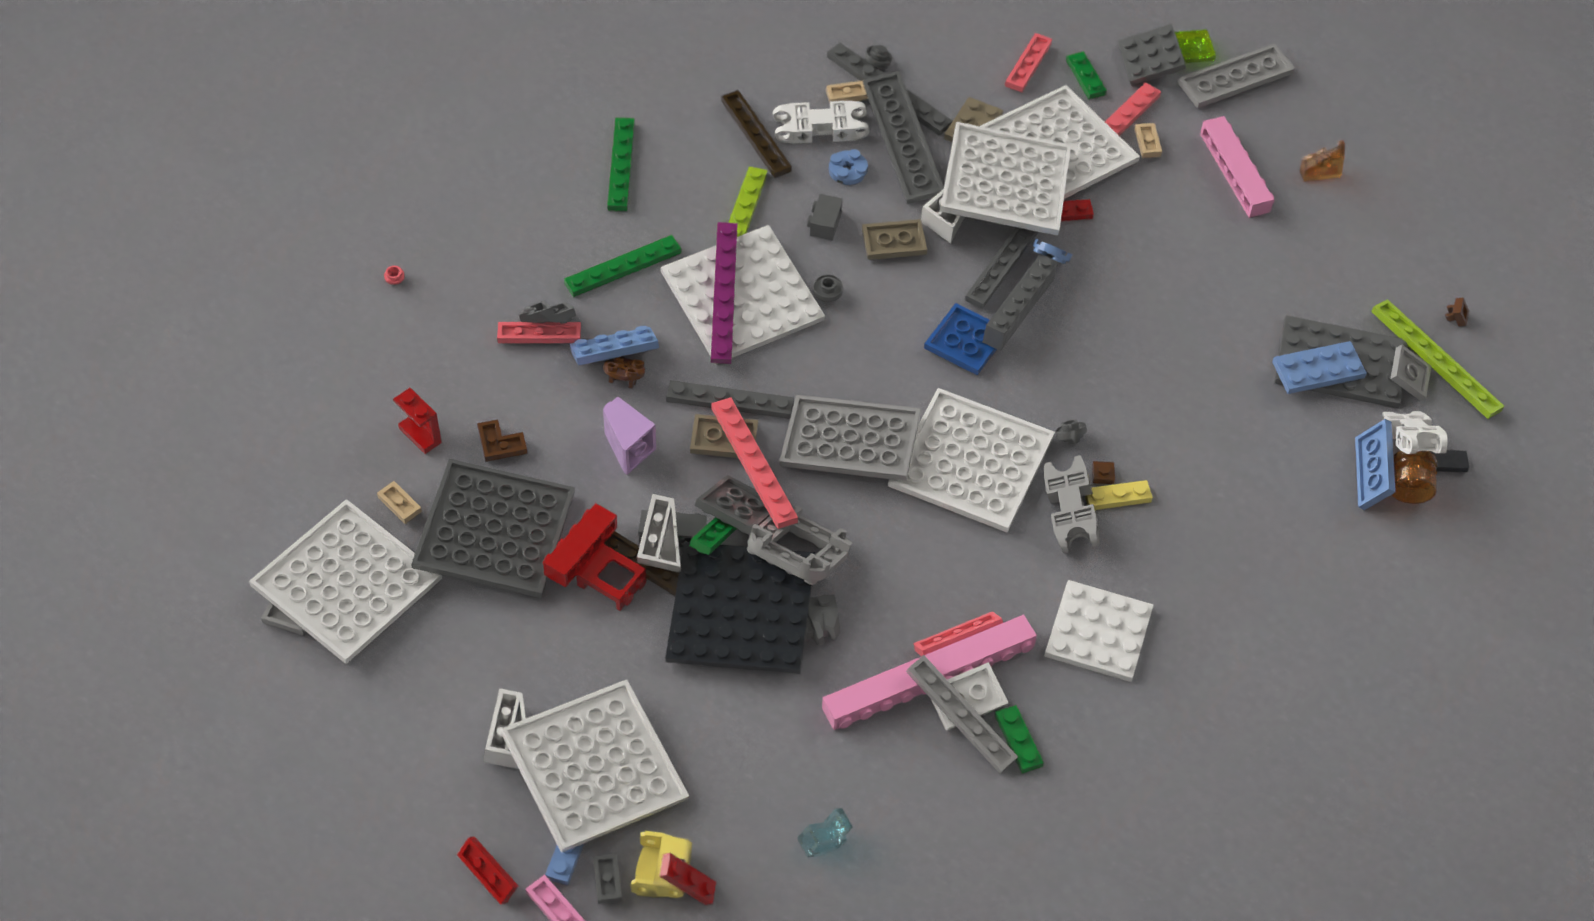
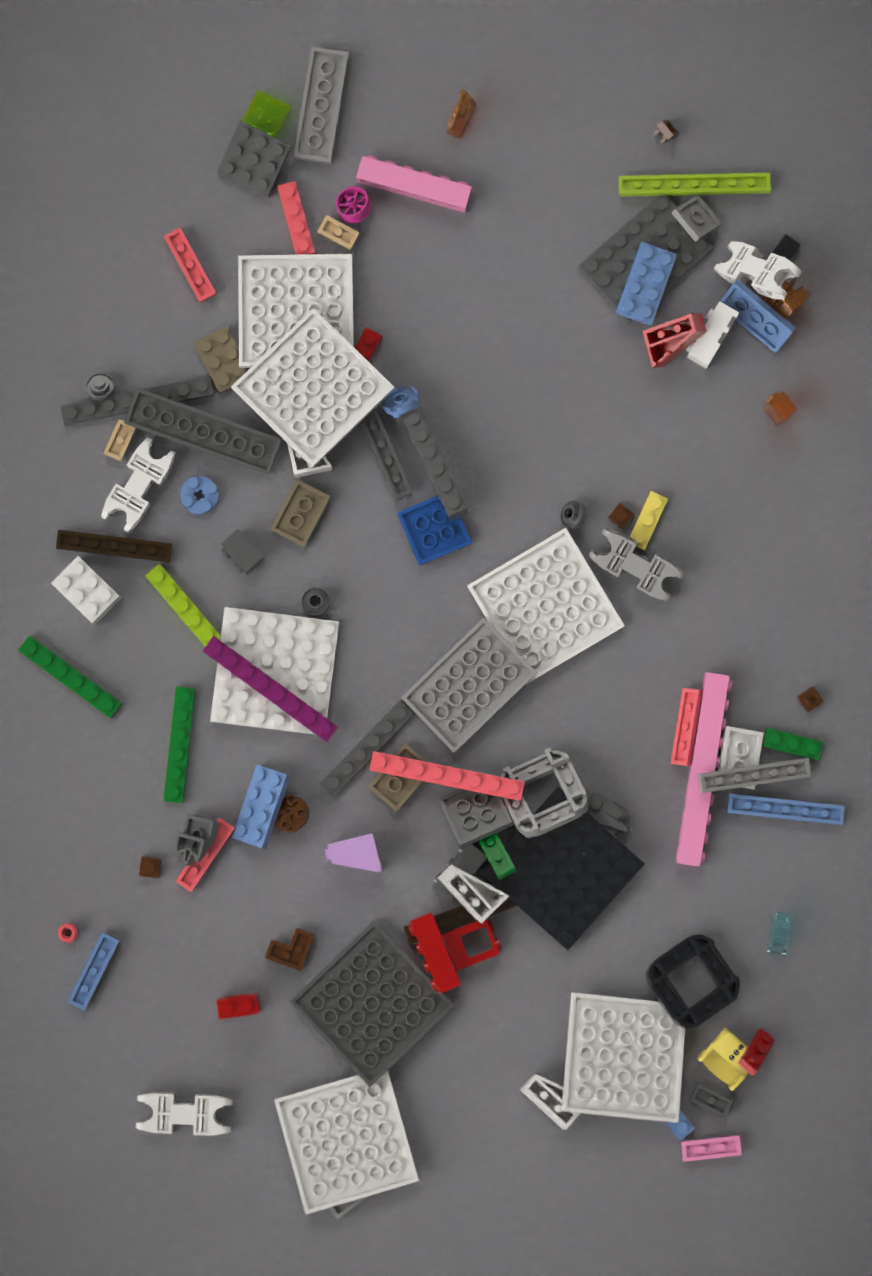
camera: 55 degrees left, 30 degrees up
(290, 455) = (184, 1113): none -> white piece
(372, 309) = (93, 971): none -> medium blue plate
(399, 502) = (298, 1058): tan plate -> none
(487, 870) = (651, 1178): red plate -> none
(497, 302) = (150, 867): none -> reddish brown plate
(703, 132) = (86, 590): none -> white brick
(726, 754) = (715, 965): none -> black plate
(952, 770) = (785, 809): none -> medium blue plate
(1074, 728) = (810, 699): none -> reddish brown tile
(1086, 75) = (233, 226): green plate -> none
(1099, 630) = (747, 622): white plate -> none
(1180, 134) = (351, 196): none -> dark pink wheel
(1294, 408) = (673, 337): none -> wedge
(1314, 530) = (779, 407): none -> clear orange brick
(1327, 442) = (717, 327): none -> white wedge

